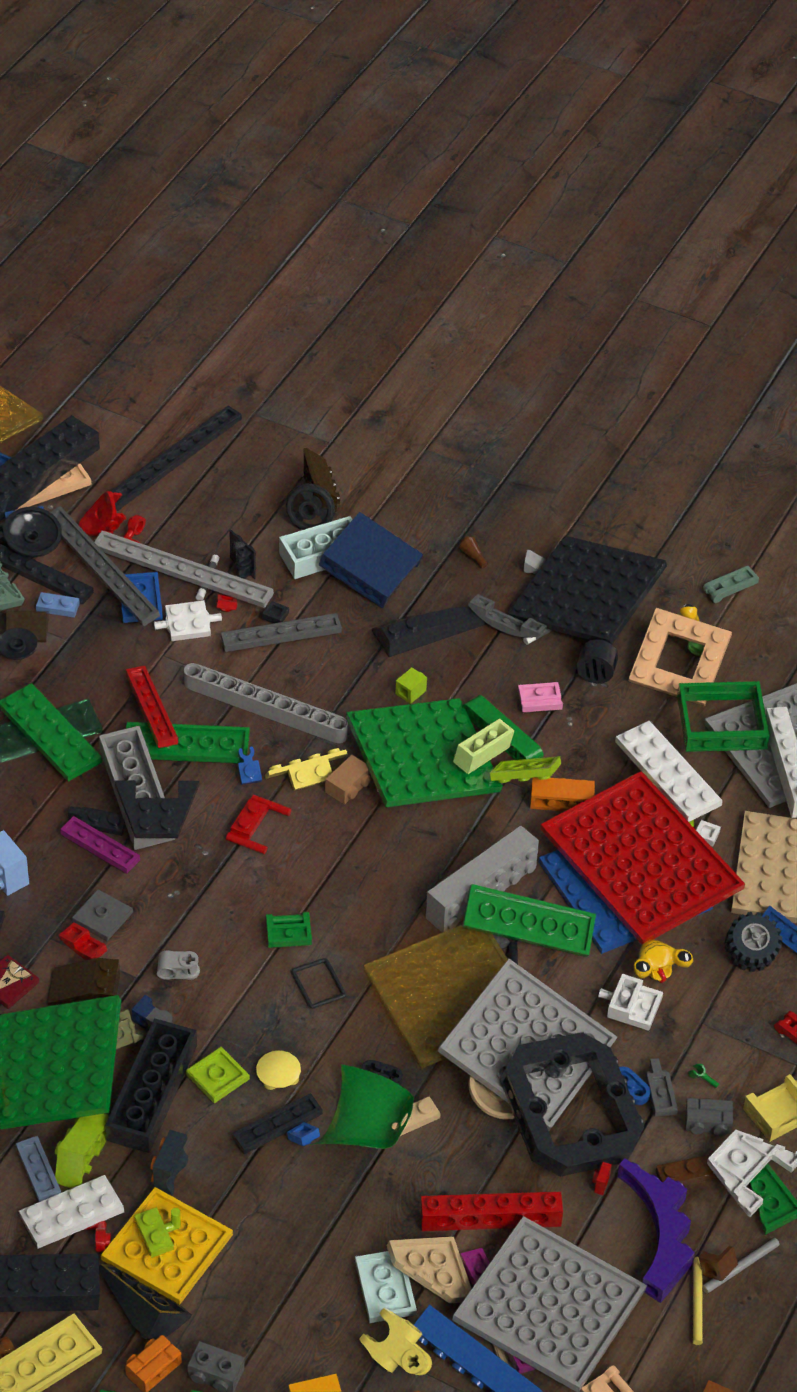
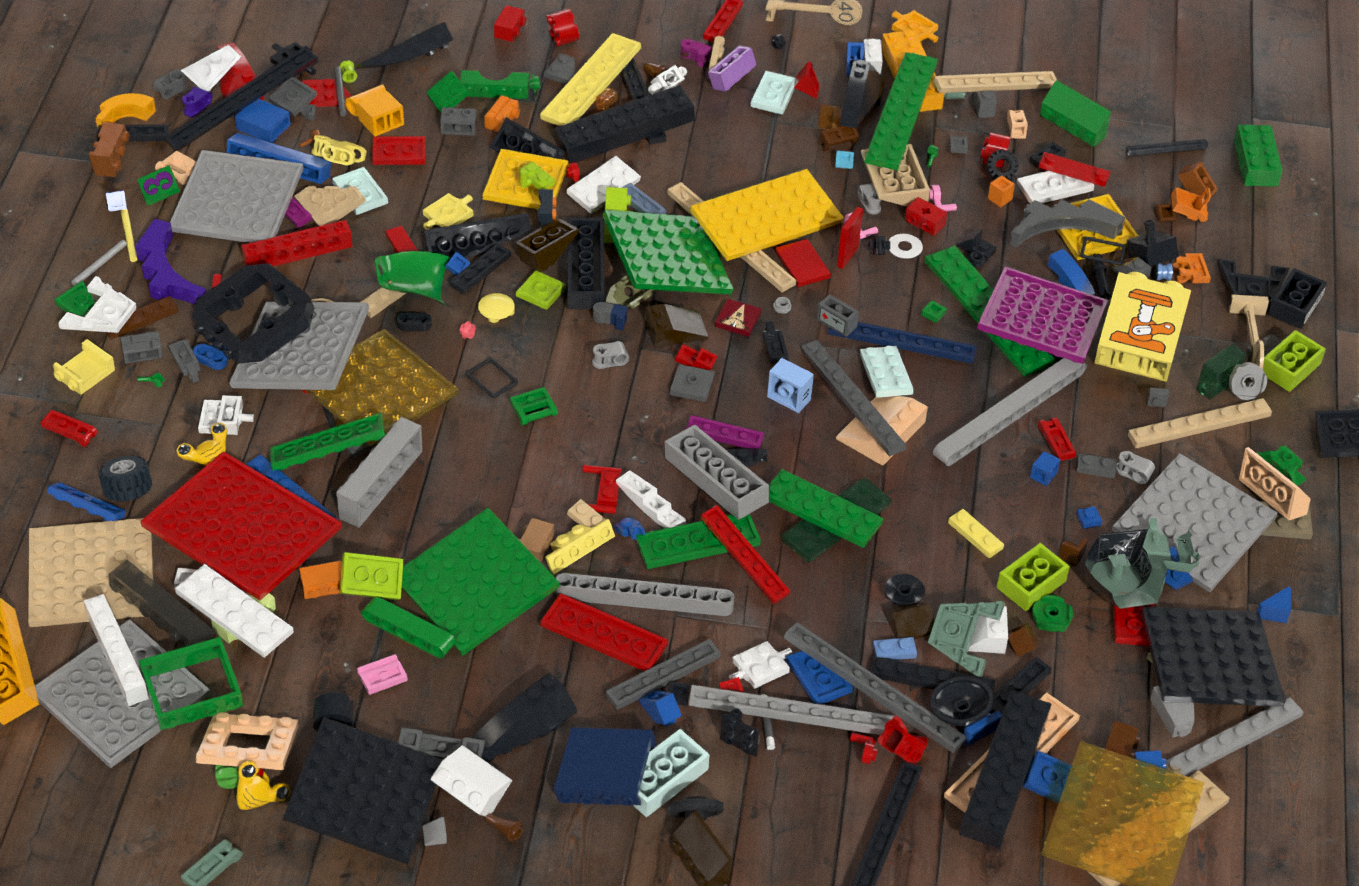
camera: 160 degrees right, 0 degrees up
(156, 815) = (684, 438): black wing -> none
(189, 1111) = (546, 244): none -> dark brown slope
(214, 791) = (648, 500): none -> white slope
(285, 791) = (584, 514): none -> tan plate
(285, 1219) = (448, 211): none -> light yellow plate
(288, 1169) = (474, 237): none -> black wedge
(298, 602) = (661, 707): none -> blue slope
(313, 1341) = (399, 150): none -> red plate
(317, 678) = (604, 633): none -> red plate
(324, 1043) = (467, 330): none -> coral plate
(357, 1186) = (400, 240): none -> red tile
(411, 685) = (512, 649): lime brick -> none
(483, 746) = (417, 580): yellowish green brick -> none
(493, 577) = (471, 780): none -> white slope
(646, 1365) = (158, 185): none -> green tile
(707, 1344) = (116, 200): none -> brick
(718, 1266) = (116, 251): reddish brown panel -> none
(740, 797) = (159, 605): none -> clear smoke brick

